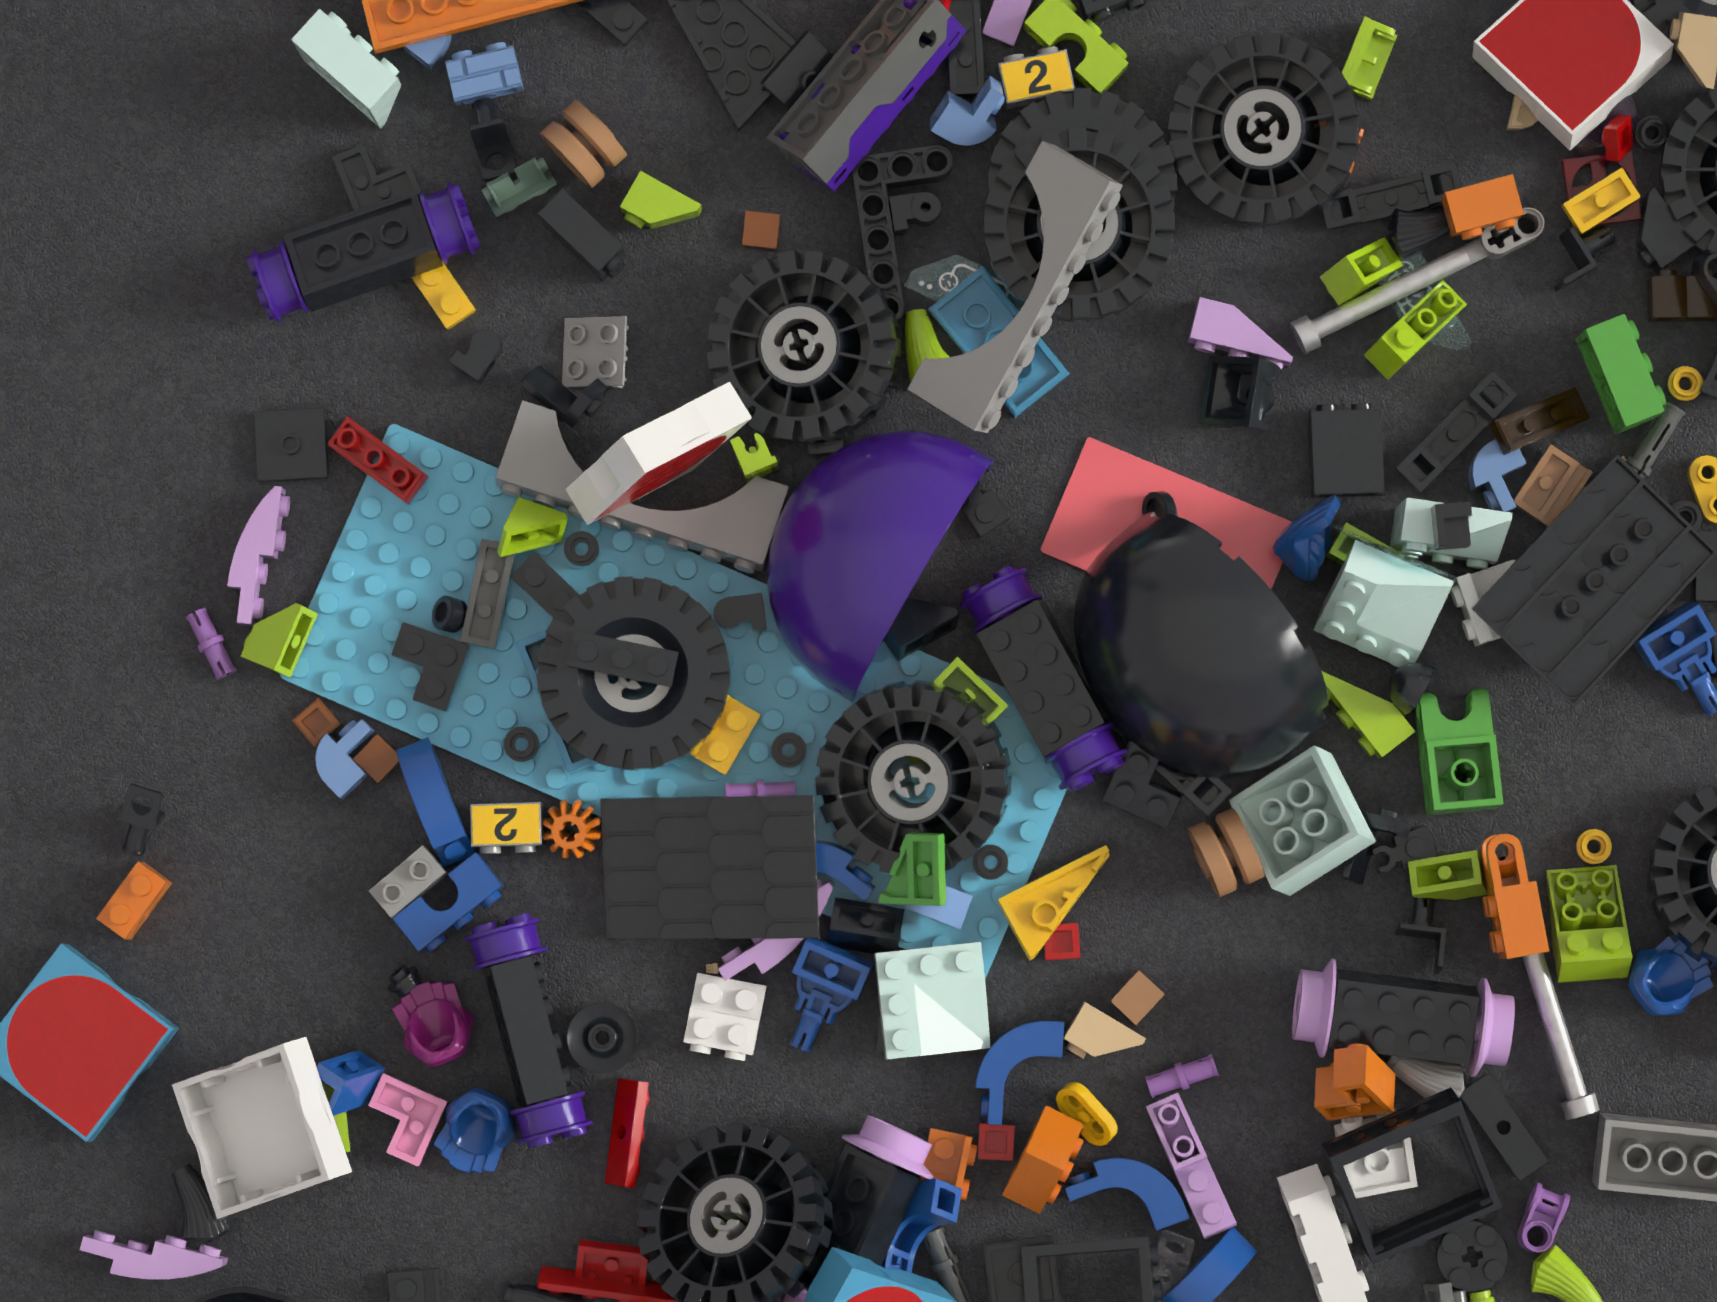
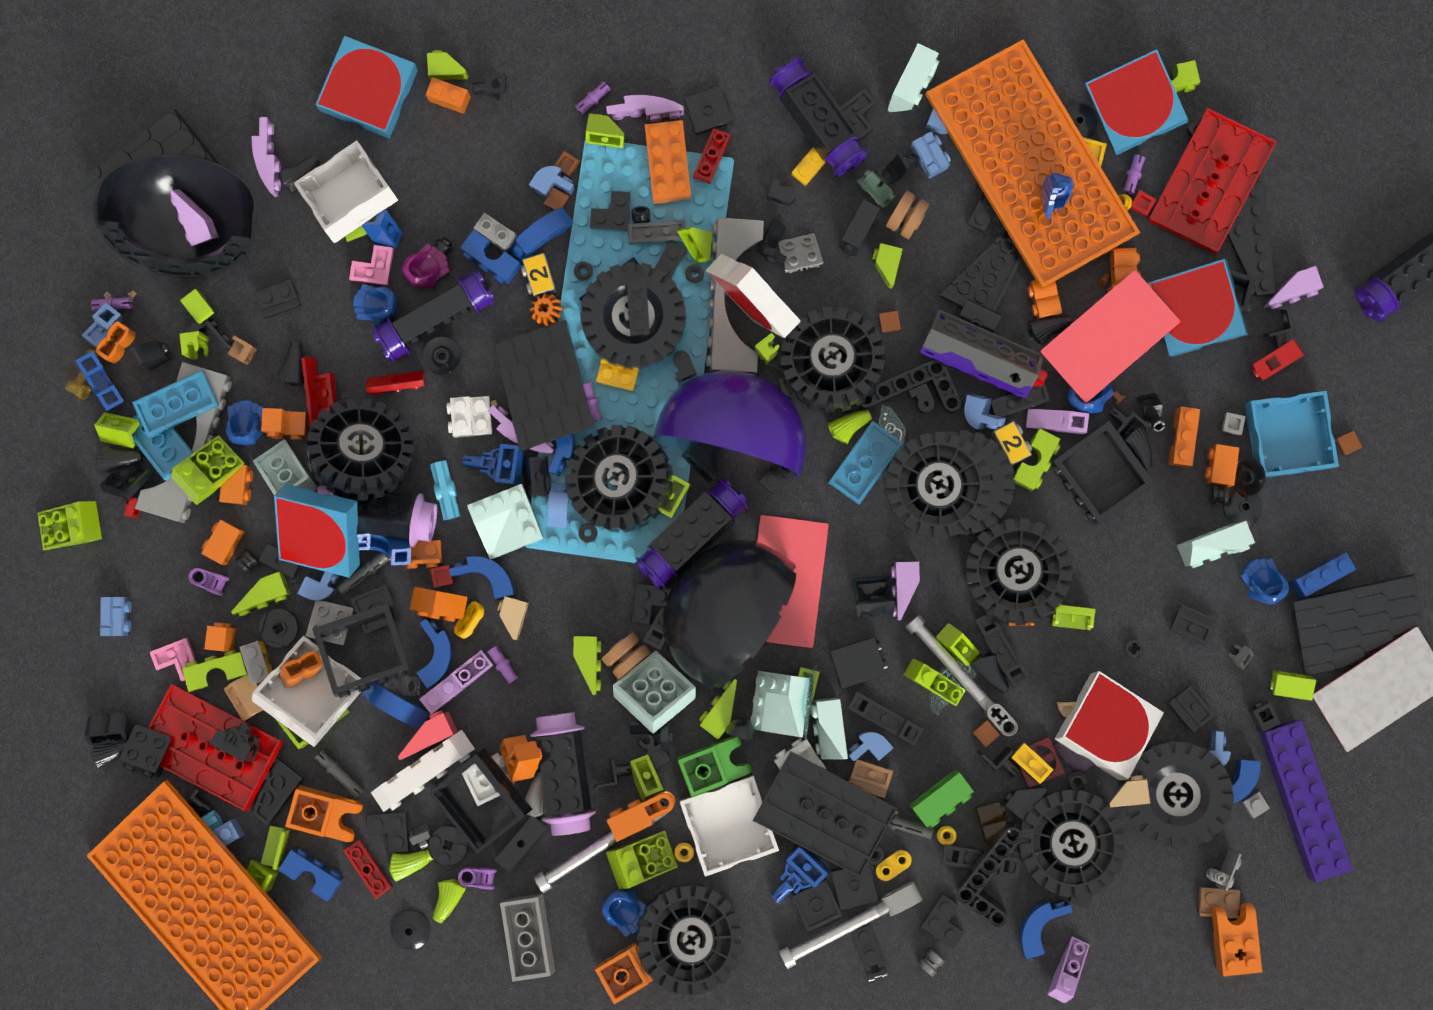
camera: 70 degrees right, 0 degrees up
(79, 893) = (444, 67): none -> lime slope
(369, 540) = (668, 162): none -> orange brick
(788, 738) = (615, 405): black plate -> none
(844, 1095) = (445, 490): none -> medium azure piece
(918, 872) = (569, 494): bright green wing -> none
(1042, 904) = (572, 566): yellow wing -> none
(1063, 943) = (556, 582): red plate -> none
(1073, 207) = (945, 477): light grey arch -> none
(1137, 997) = (537, 629): medium nougat panel -> none
(1160, 503) = (802, 571): black tile -> none
(1205, 923) = (586, 655): none -> lime slope
(1269, 1227) = (431, 732): none -> coral slope
(1306, 539) = (804, 654): blue hair -> none
(1451, 525) = (831, 727): black panel -> none
(1482, 206) = (1010, 699): orange brick -> none
(1527, 266) = (986, 733): none -> dark orange tile
(1539, 421) = (903, 761): dark brown tile -> none
(1568, 761) = (724, 825): none -> white tile
(1618, 137) = (1069, 763): red plate -> none

